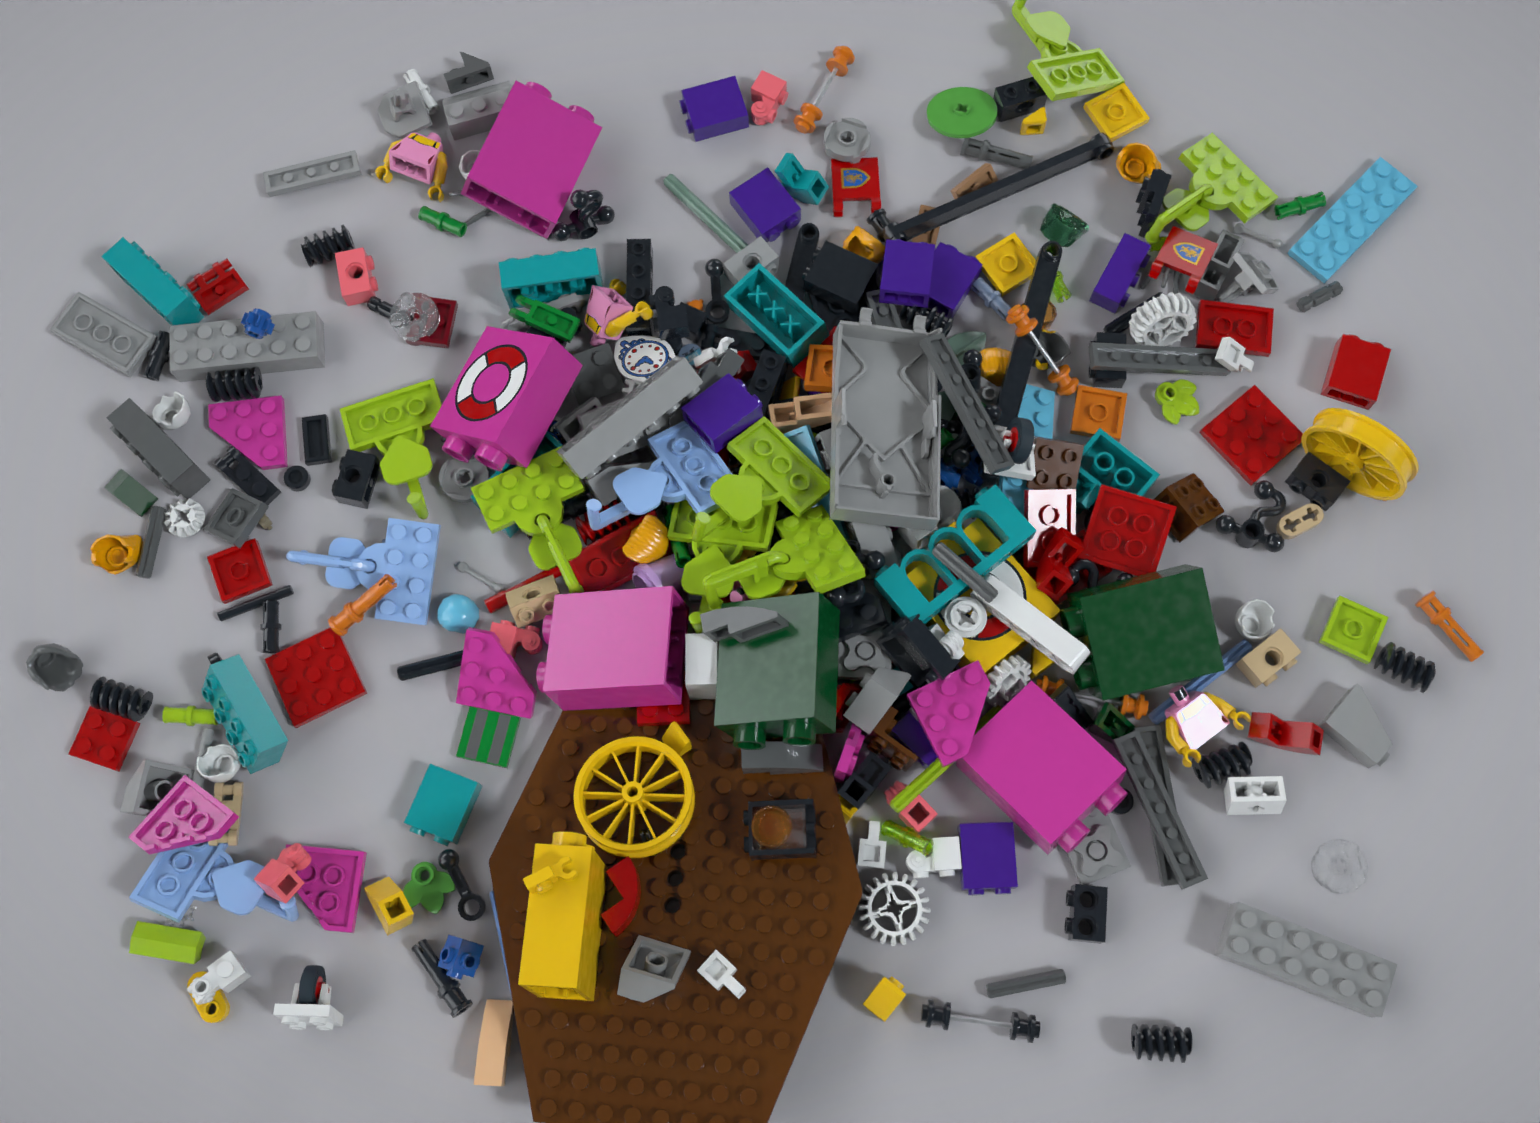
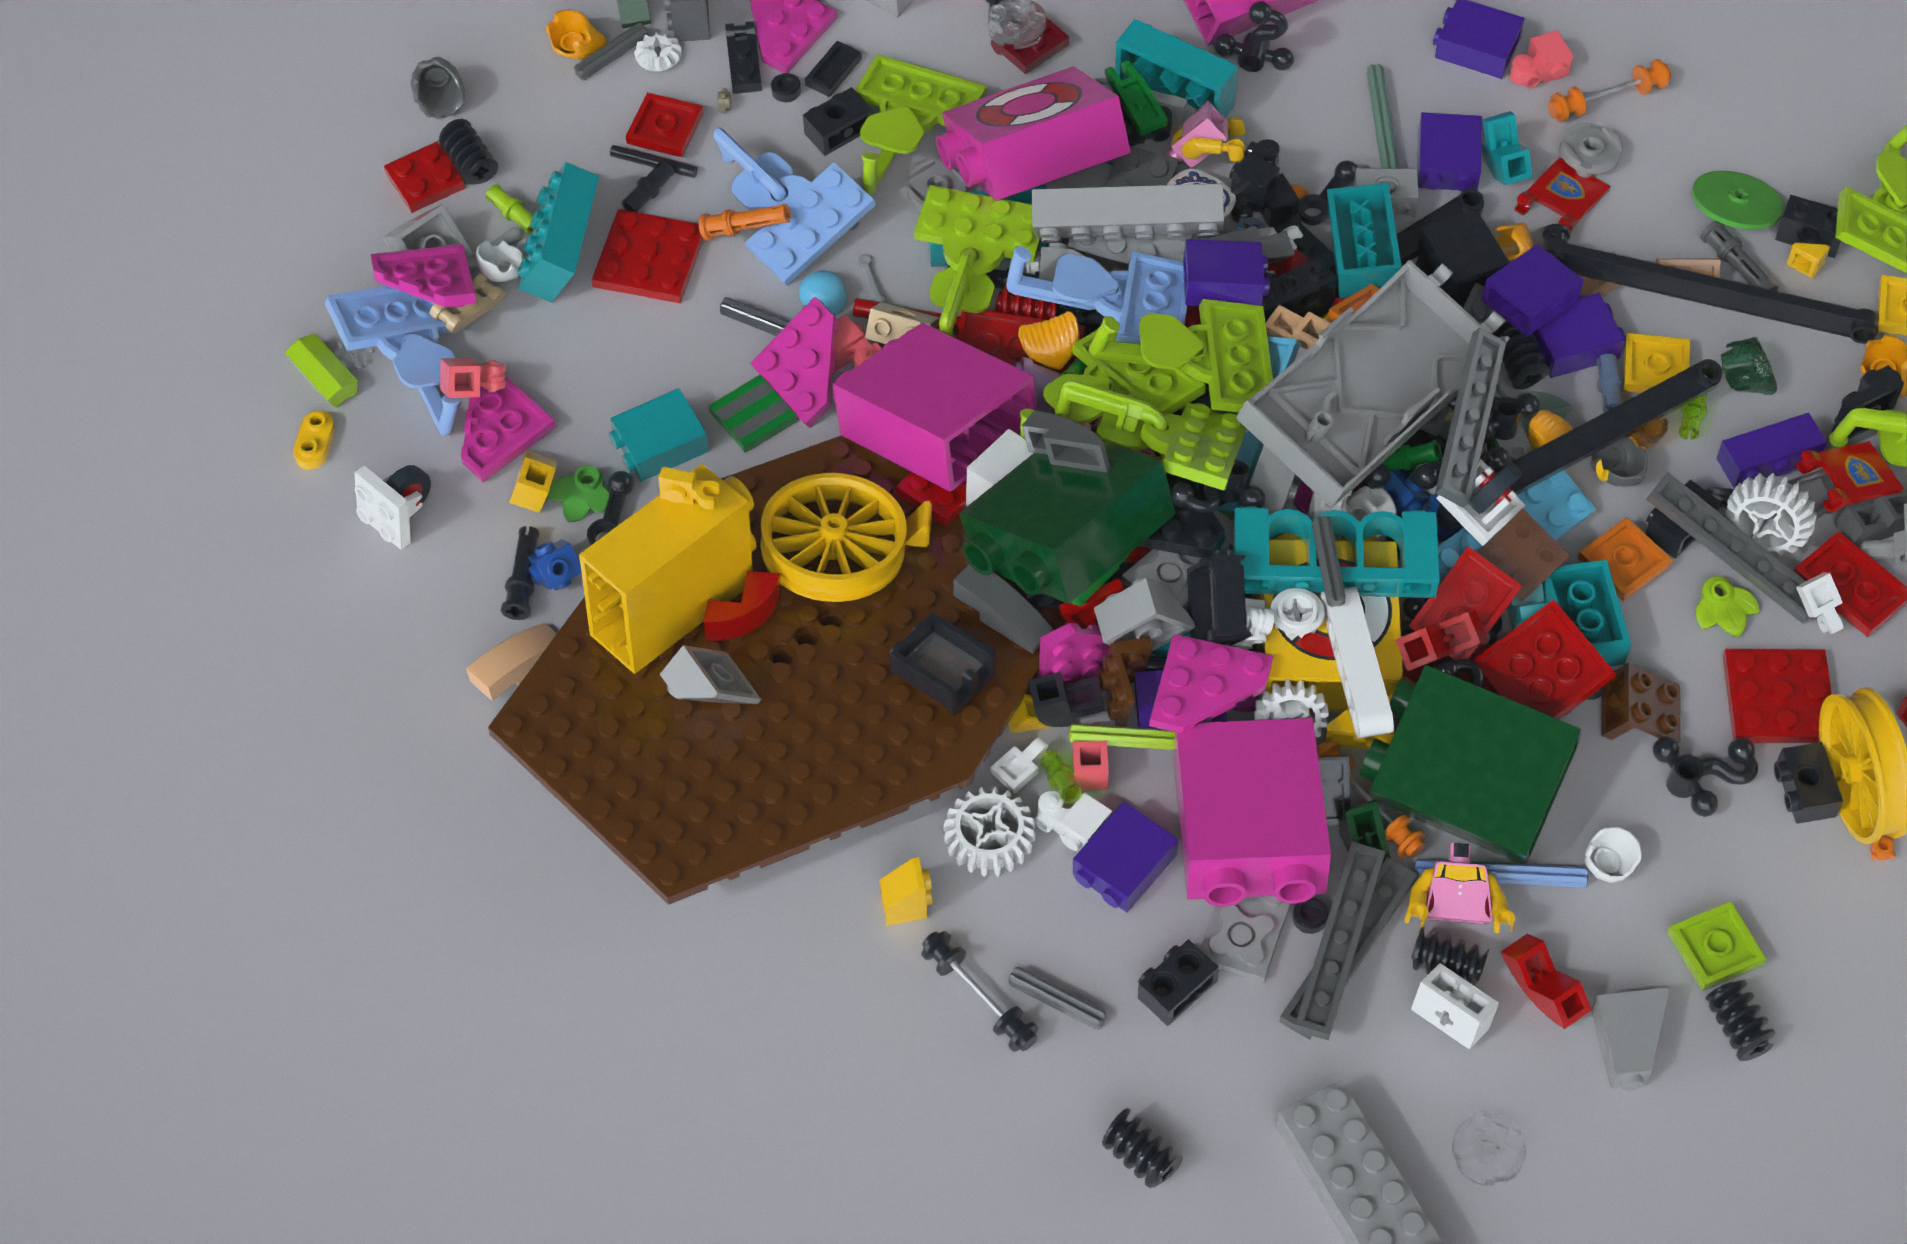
camera: 40 degrees right, 15 degrees down
(223, 974) = (344, 422): white brick -> none
(236, 517) = (702, 78): dark grey plate -> none
(639, 282) = (1270, 120): black brick -> none
(719, 972) = (769, 731): white plate -> none
(772, 826) = (934, 643): clear orange hair -> none
(1060, 375) = (1609, 405): orange axle -> none
(1277, 646) = (1610, 891): tan brick -> none
(1302, 526) = (1754, 808): tan beam -> none
(1472, 650) = (1830, 1006): orange pin -> none

